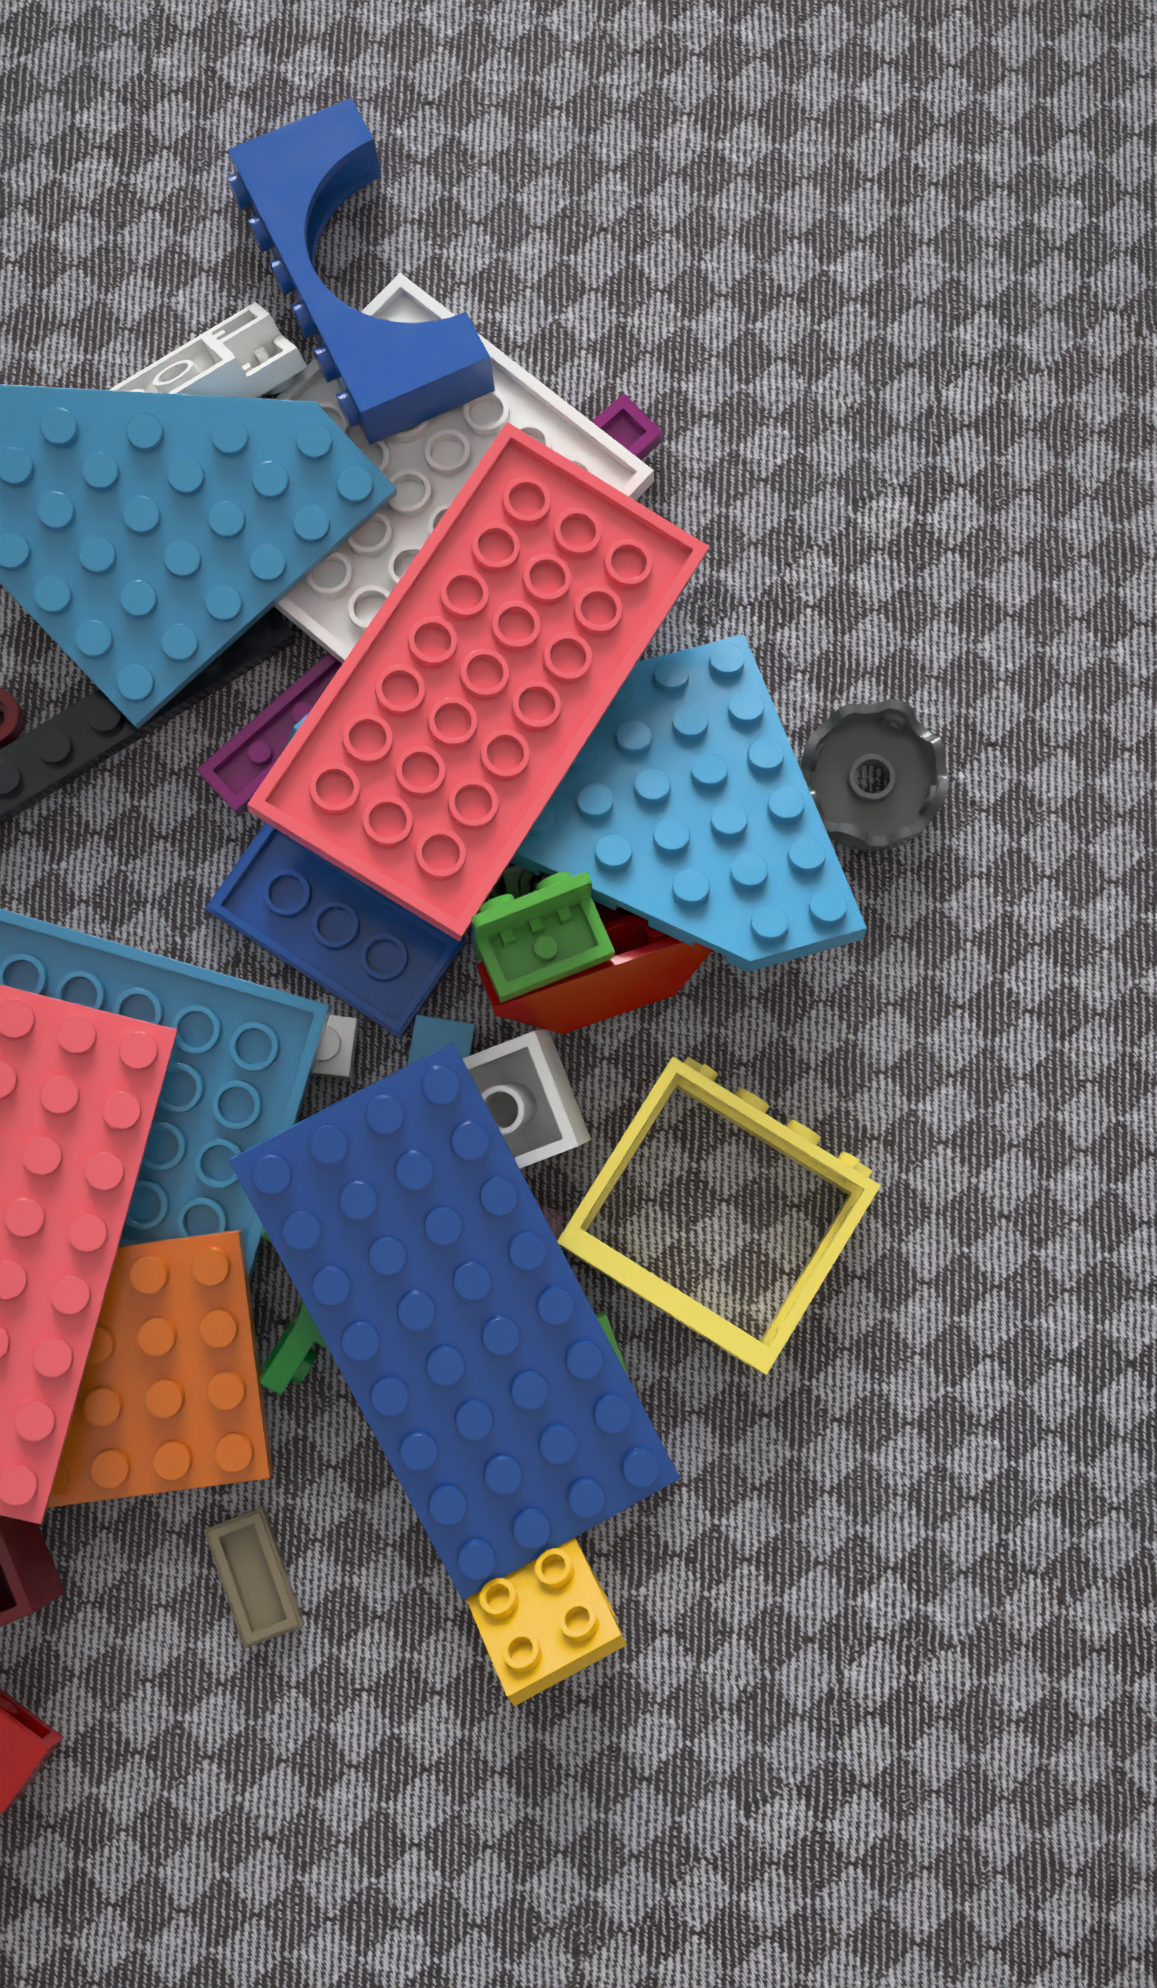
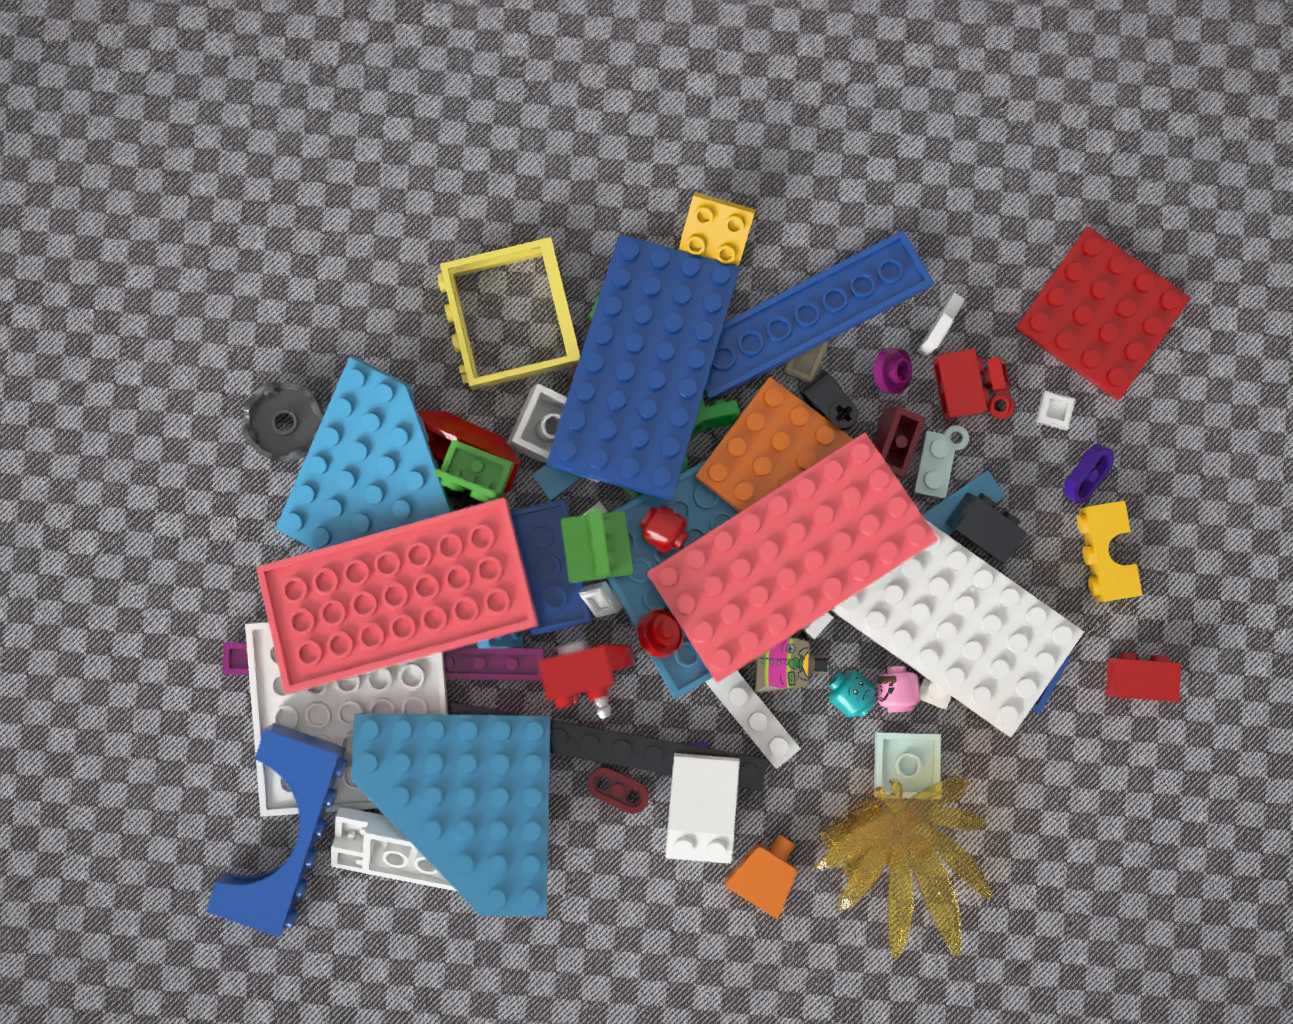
camera: 140 degrees left, 5 degrees up
(77, 962) = (659, 633): none -> red plate
(84, 1800) = (941, 325): none -> white tile
(100, 1661) = (892, 370): none -> magenta plate
(130, 812) = (584, 670): none -> red piece
(159, 1528) = (826, 396): none -> black piece
(207, 1113) = (664, 529): none -> red head
(218, 945) = (600, 599): none -> white tile
(278, 999) = (596, 546): none -> bright green bracket
(288, 1649) = (816, 312): none -> blue plate

